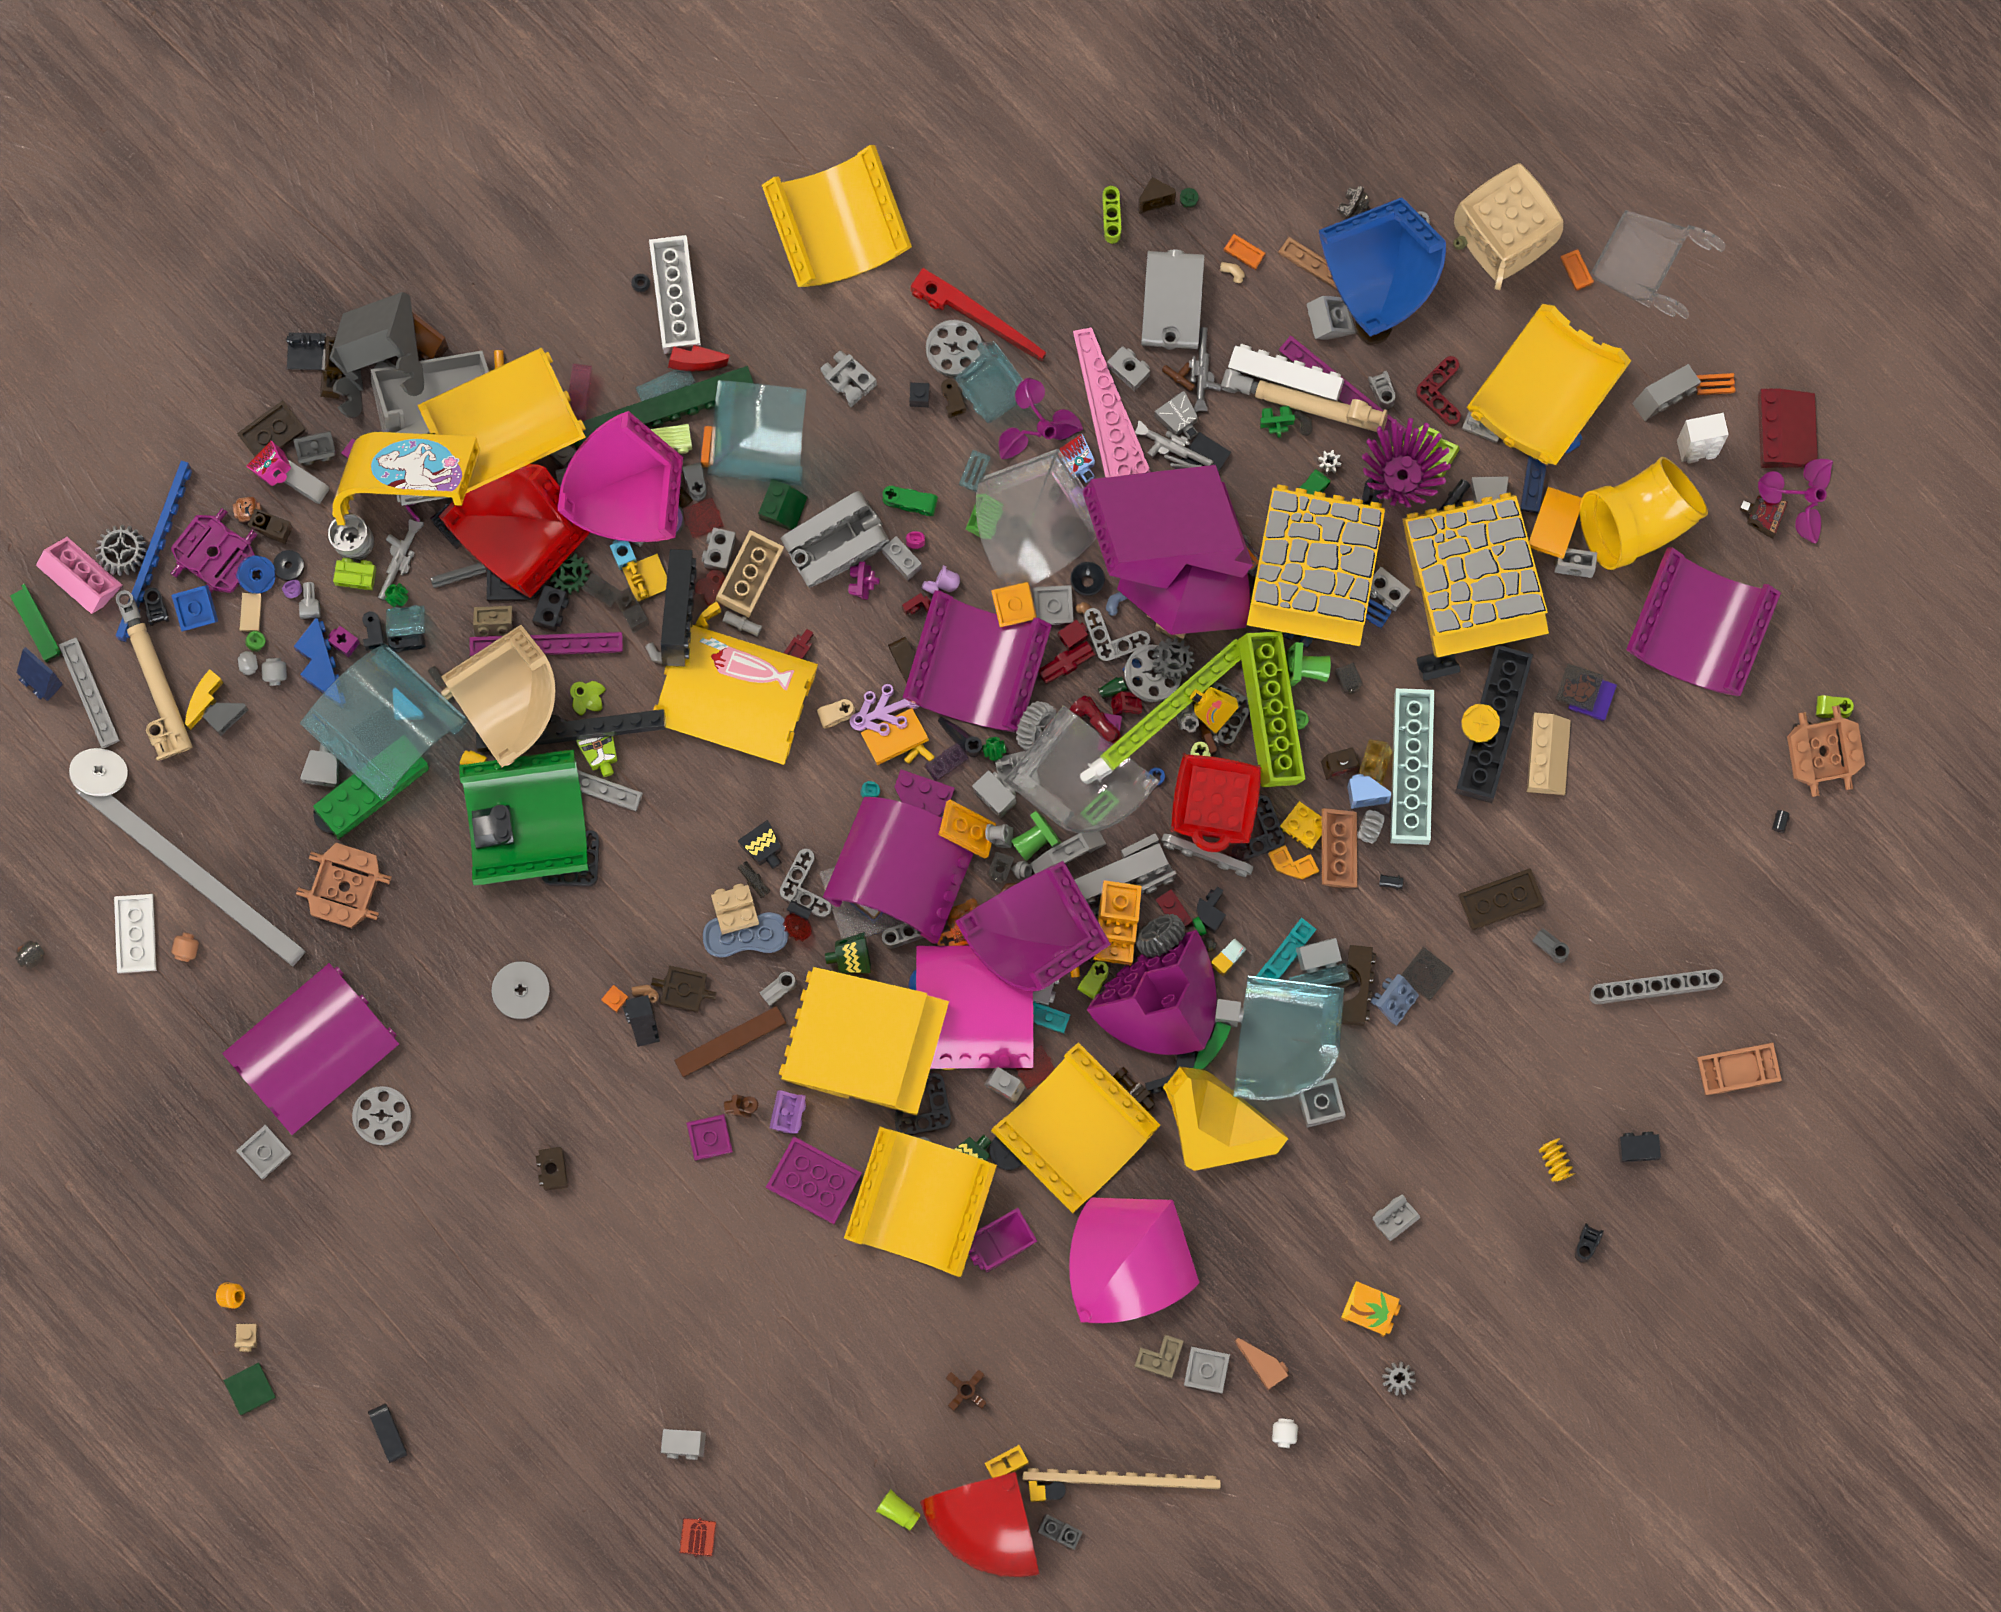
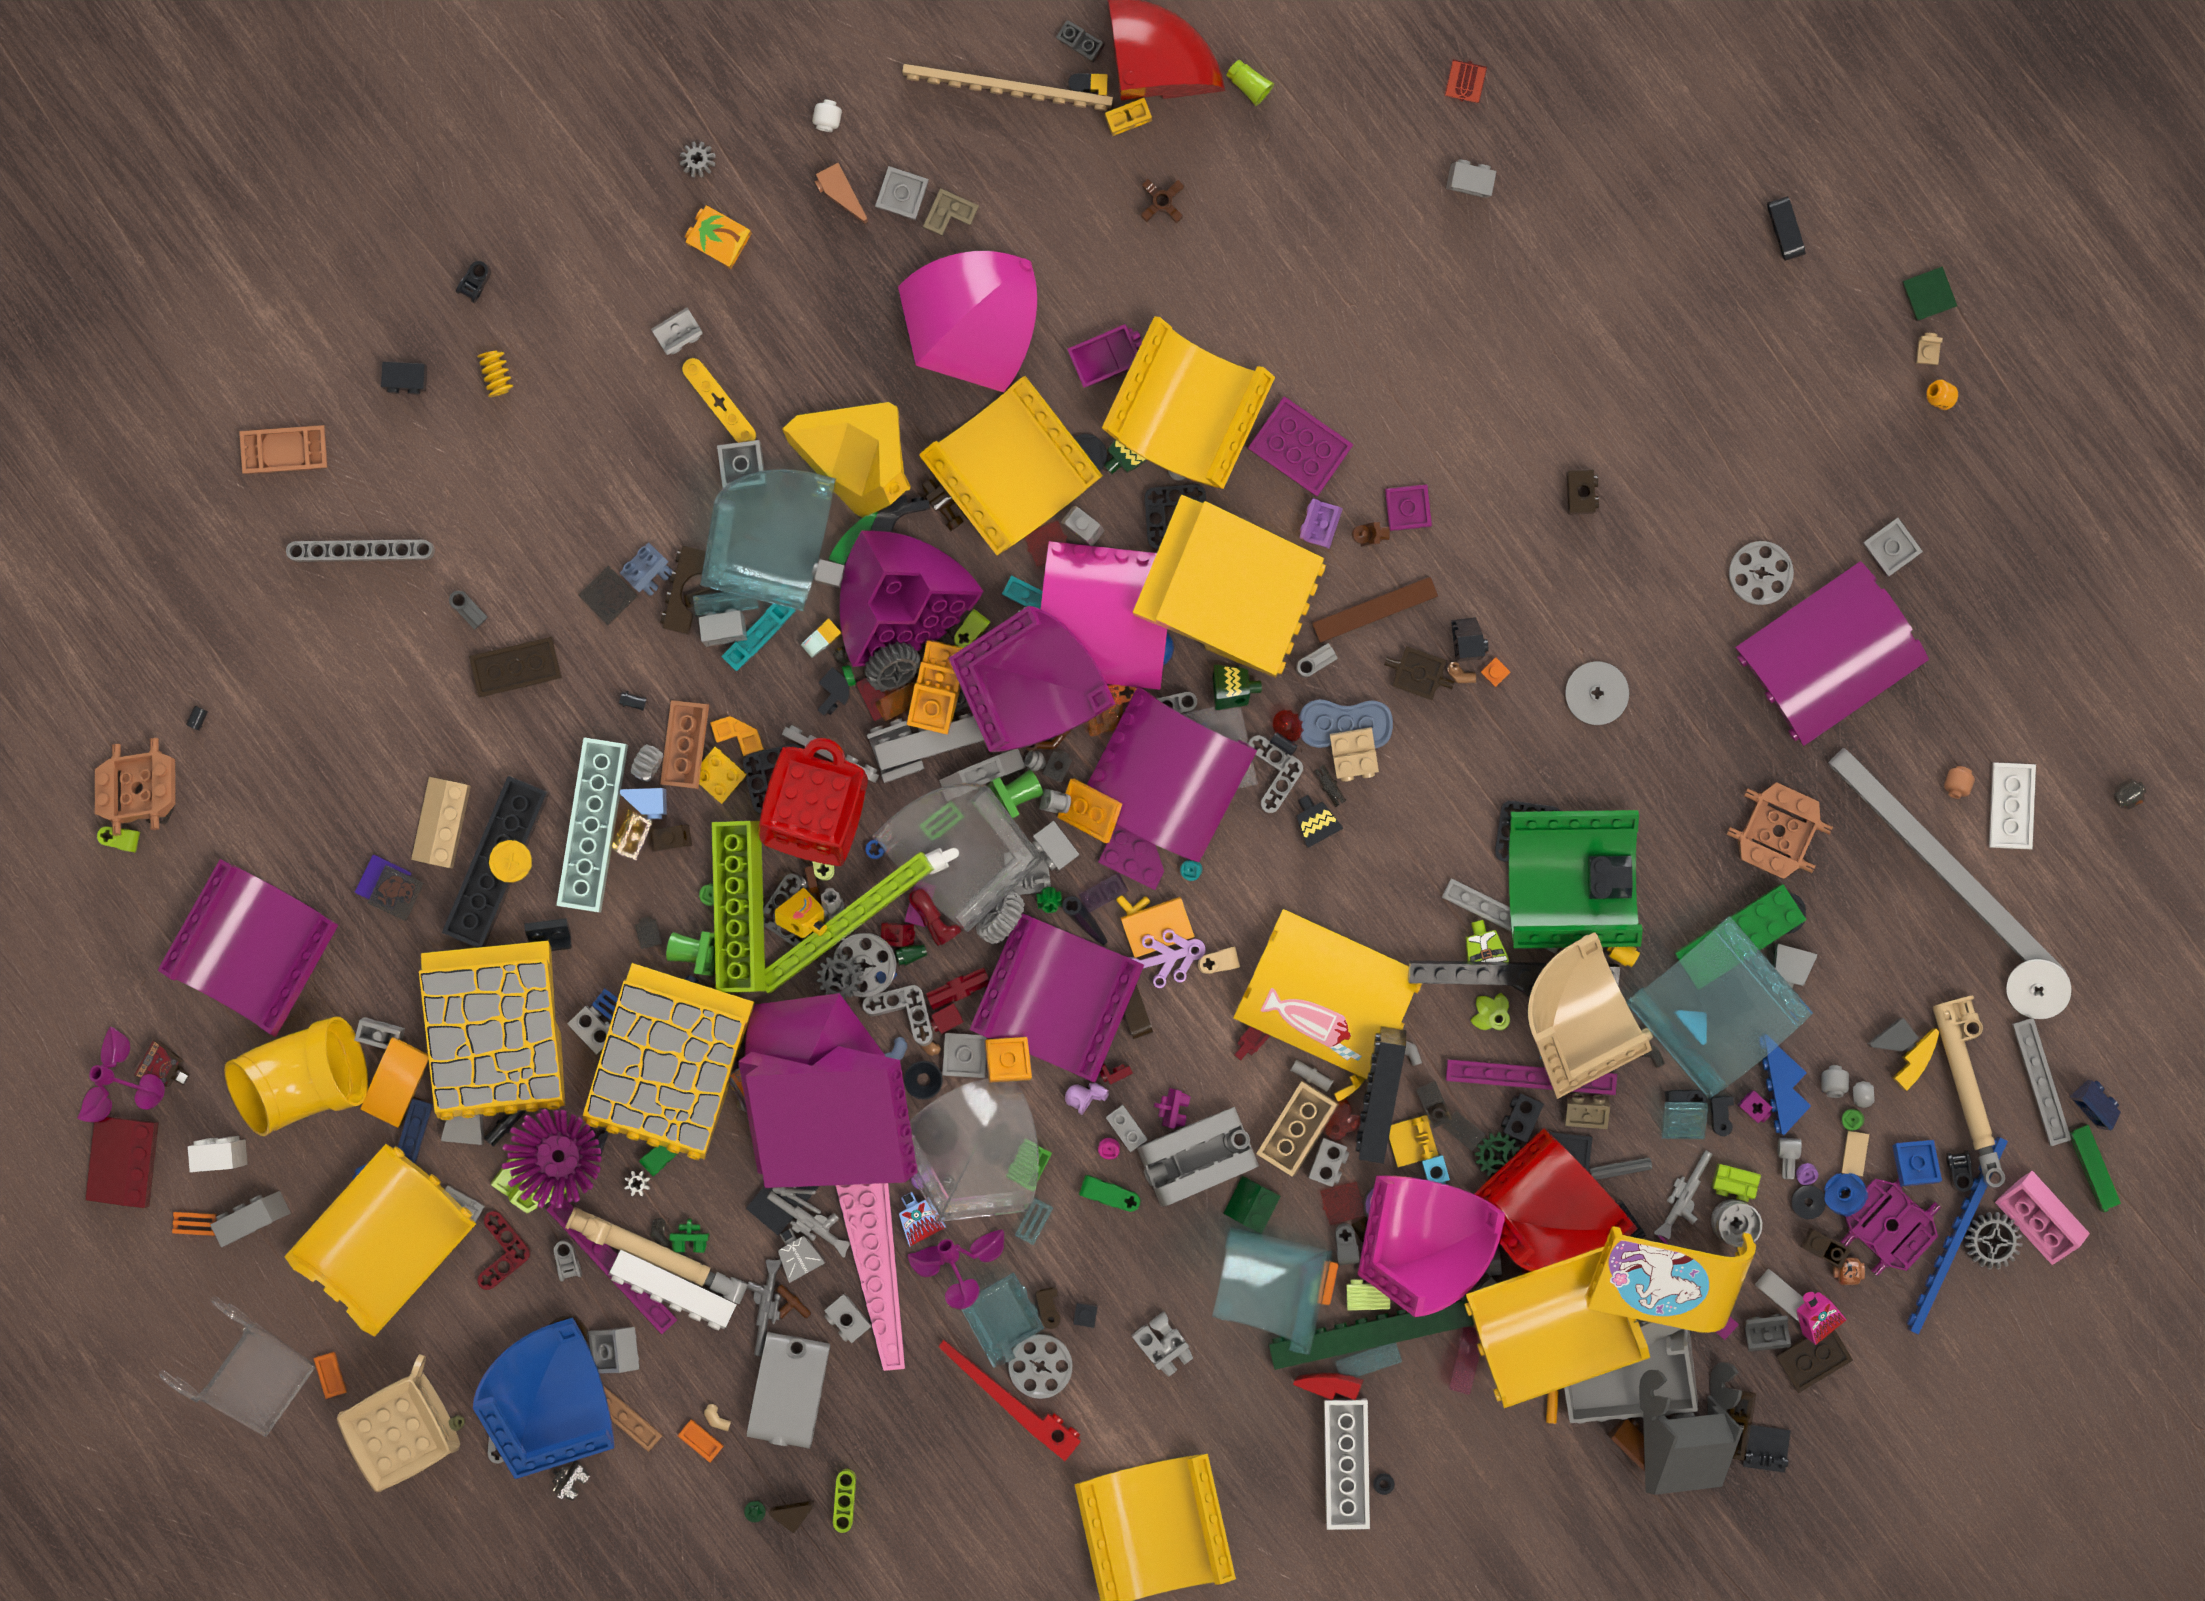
camera: 170 degrees left, 10 degrees up
(396, 595) = (1691, 1152): green gear -> none
(1153, 907) = (896, 702): none -> clear orange slope
(1363, 1173) = (706, 386): none -> yellow piece

